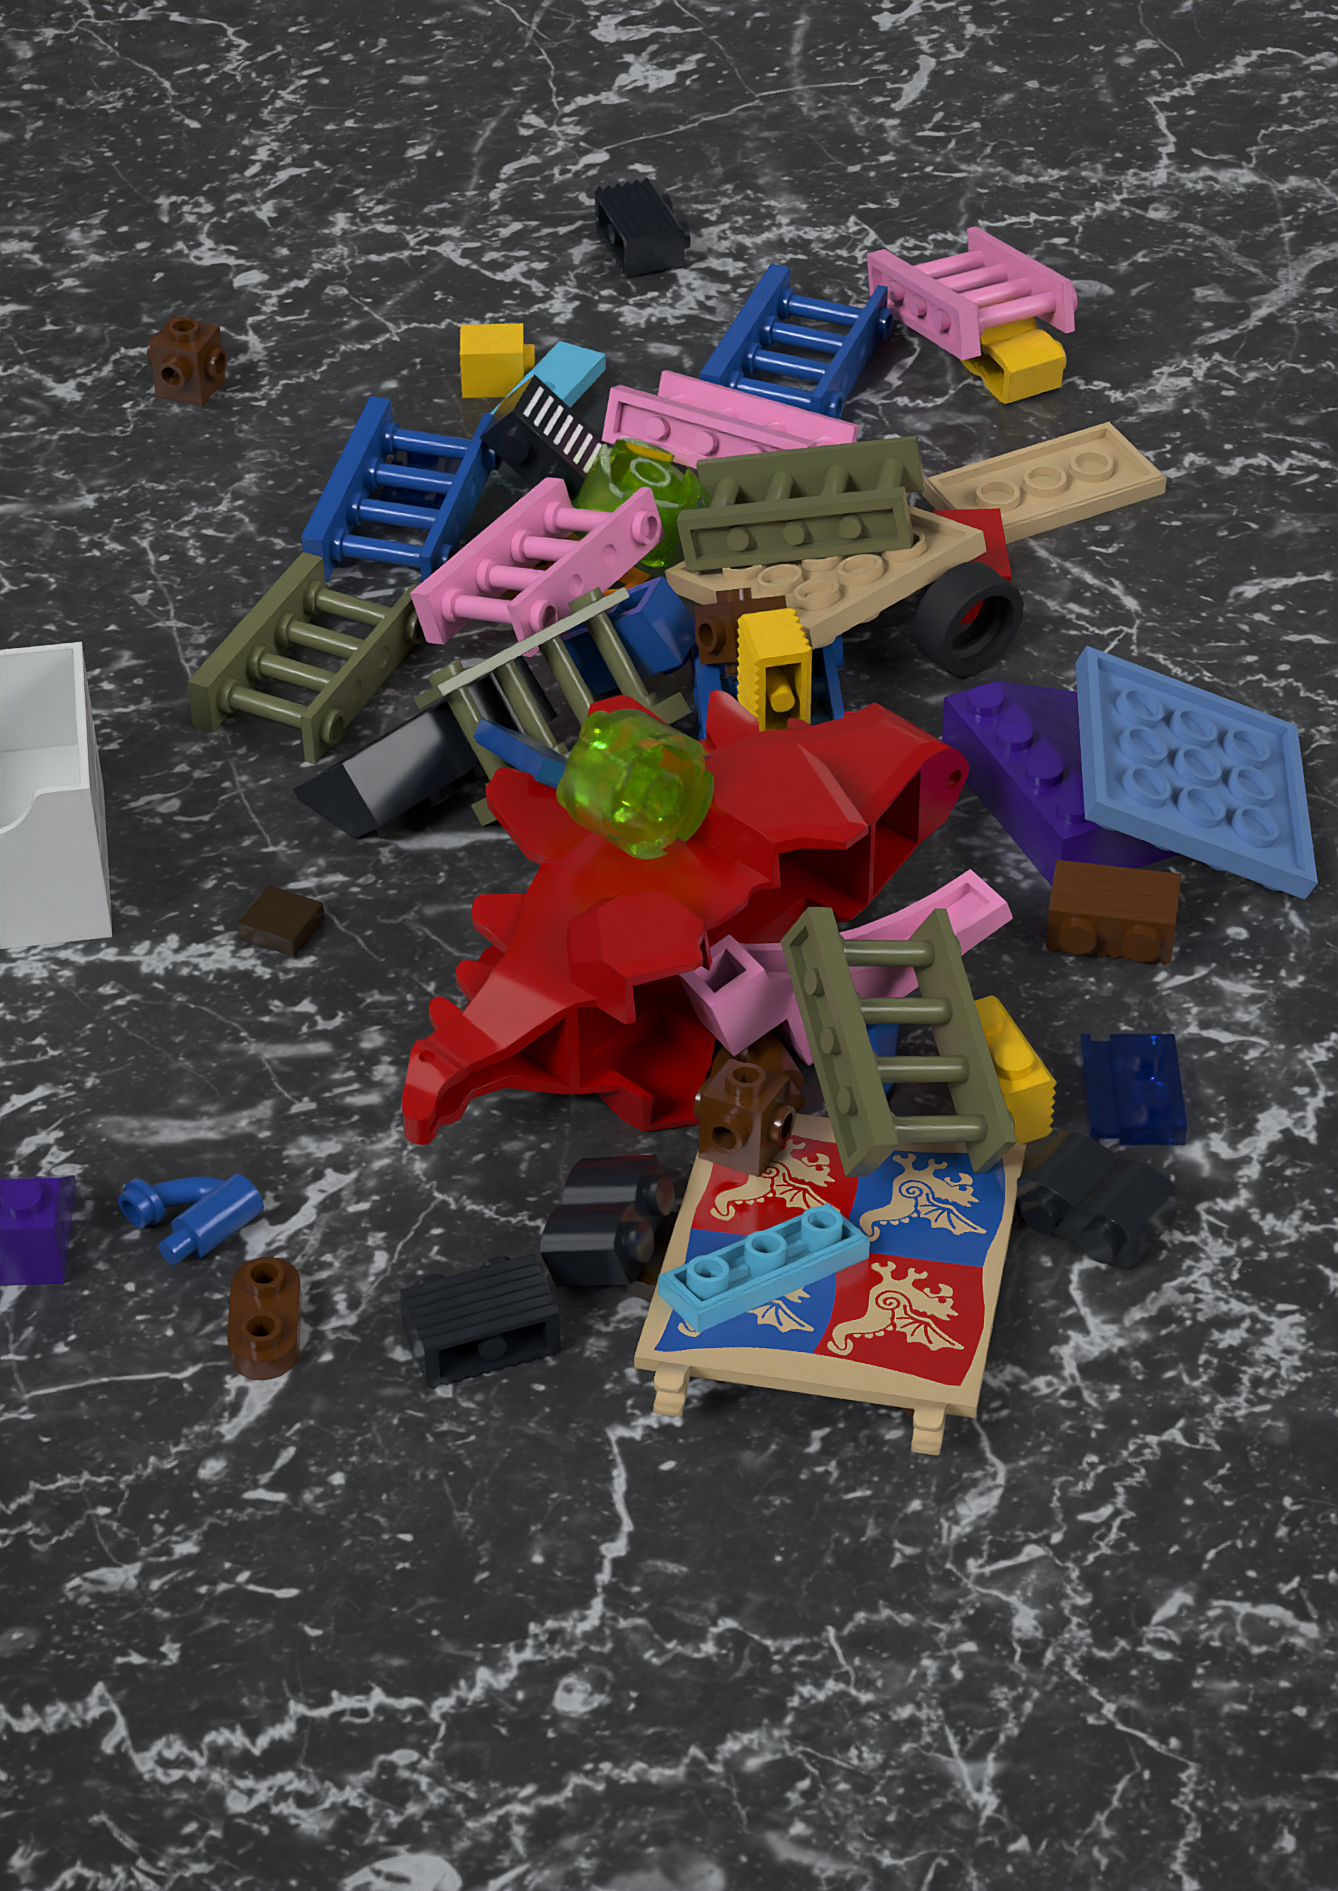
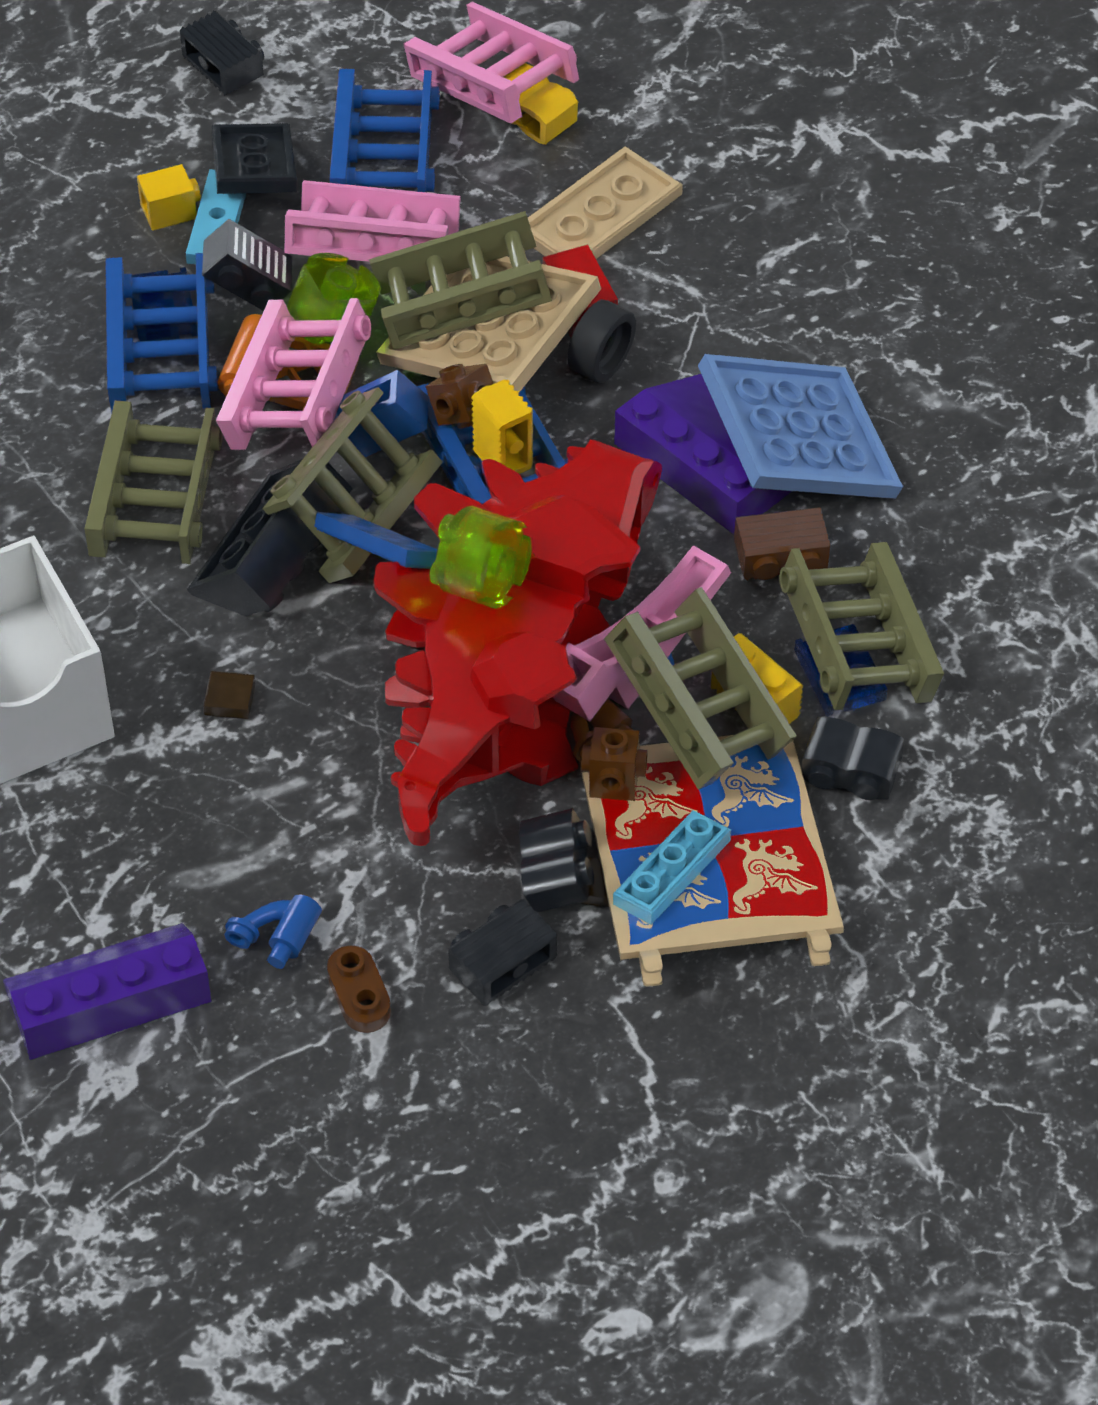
camera: 20 degrees left, 10 degrees up
(619, 339) = (253, 158): none -> black tile
(1235, 1020) = (888, 603): none -> olive fence

